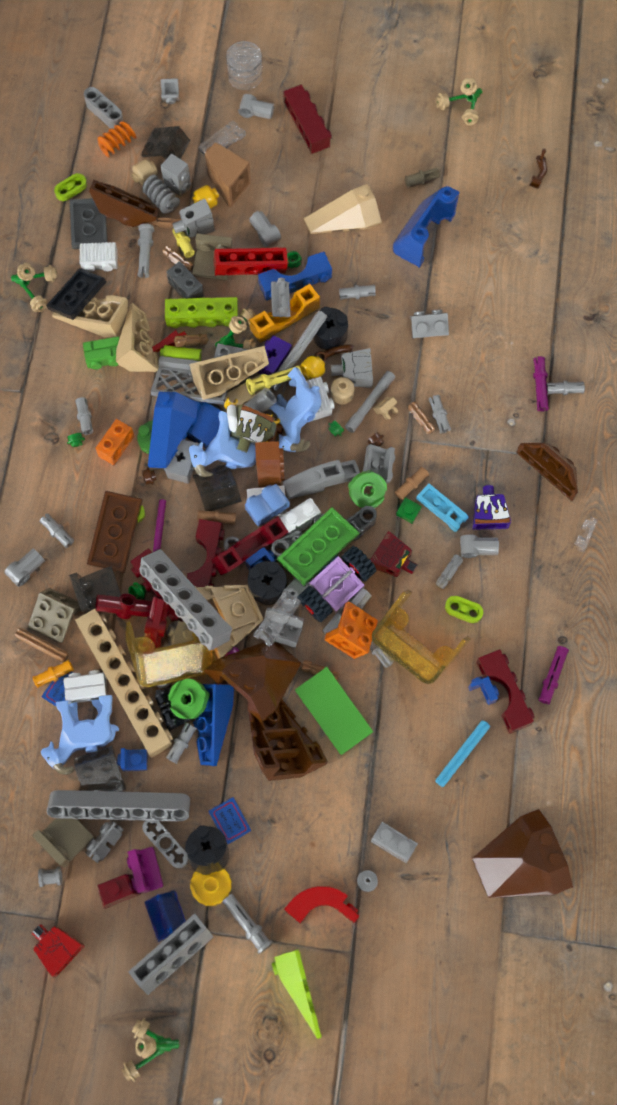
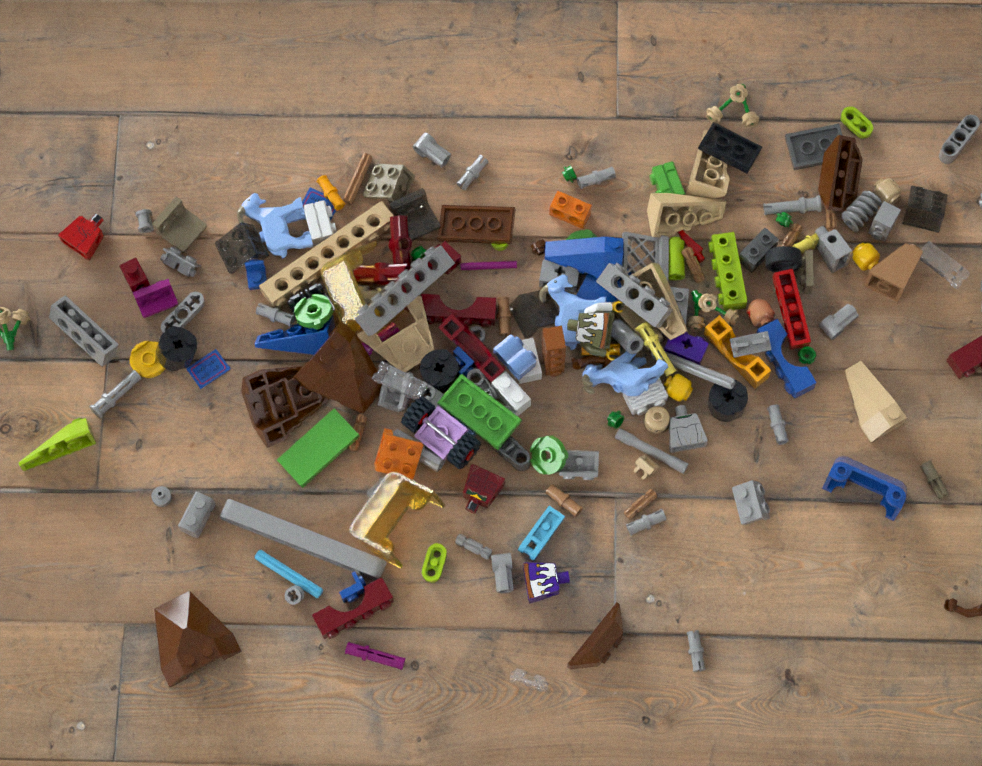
camera: 85 degrees right, 0 degrees up
(98, 256) = (777, 162): white brick -> none
(115, 137) = (923, 157): orange piece -> none
(118, 805) = (211, 268): light grey beam -> none
(157, 259) = (784, 219): none -> green plate
(165, 914) = (120, 323): clear blue panel -> none
(201, 259) = (783, 258): none -> black tyre
(247, 369) = (609, 280): none -> light grey brick
(248, 290) = (760, 312): none -> nougat head
(319, 477) = (557, 410): light grey slope -> none
(320, 896) = (143, 464): red arch -> none
(336, 350) = (708, 418): reddish brown piece -> none
(376, 439) = (607, 460): reddish brown plate -> none
(408, 510) = (535, 501): green plate -> none
(428, 737) = (303, 539): none -> light grey beam
(480, 748) = (289, 597): none -> light grey bush
(541, 385) = (705, 623): magenta pin -> none

